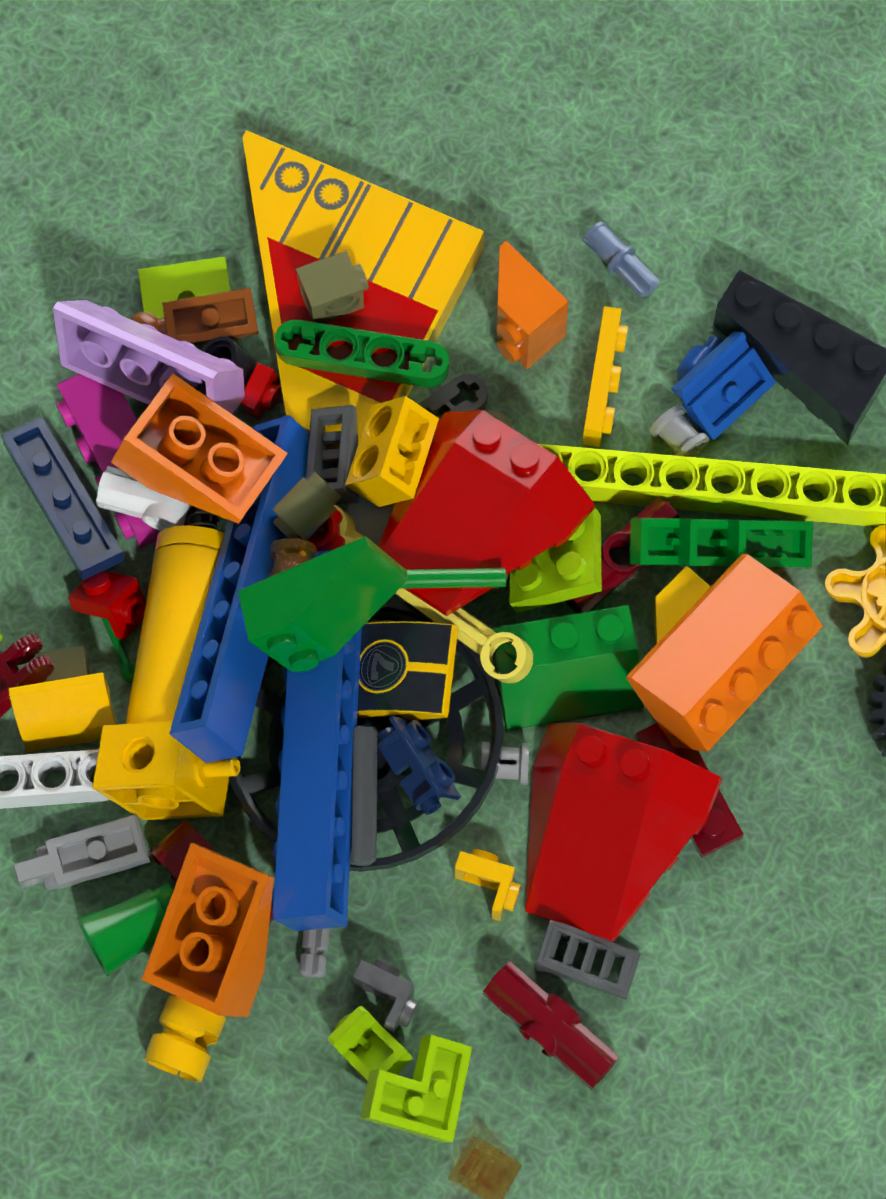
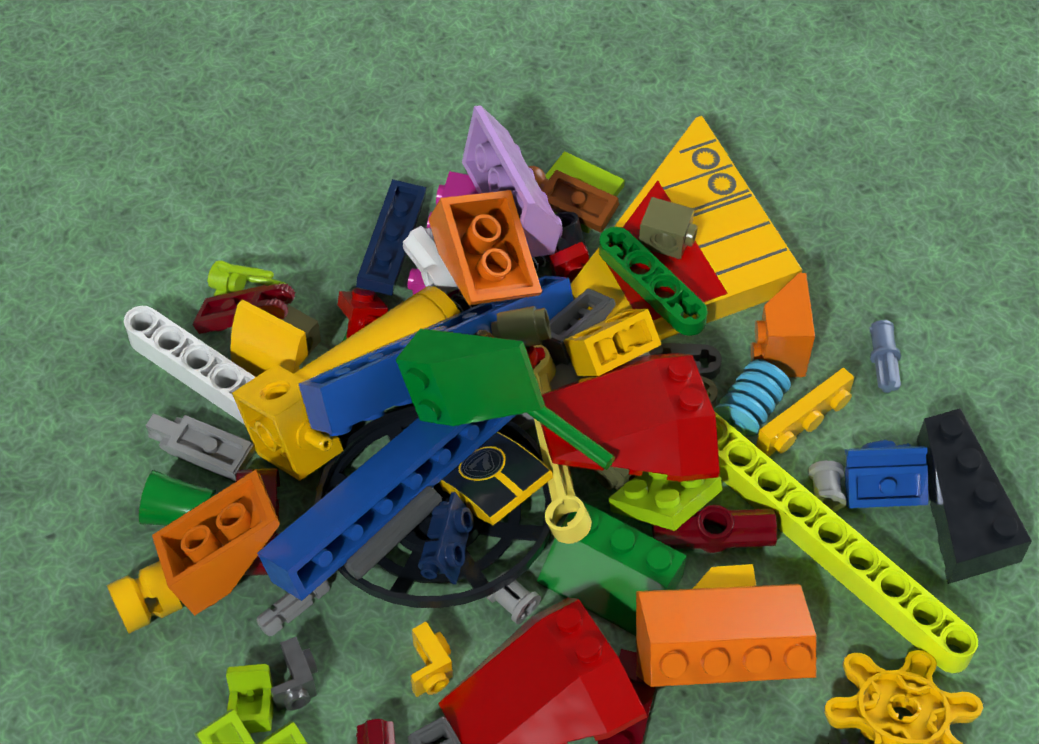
camera: 40 degrees right, 15 degrees down
(544, 399) = (753, 396): none -> medium azure piece
(720, 542) = (787, 564): green slope -> none

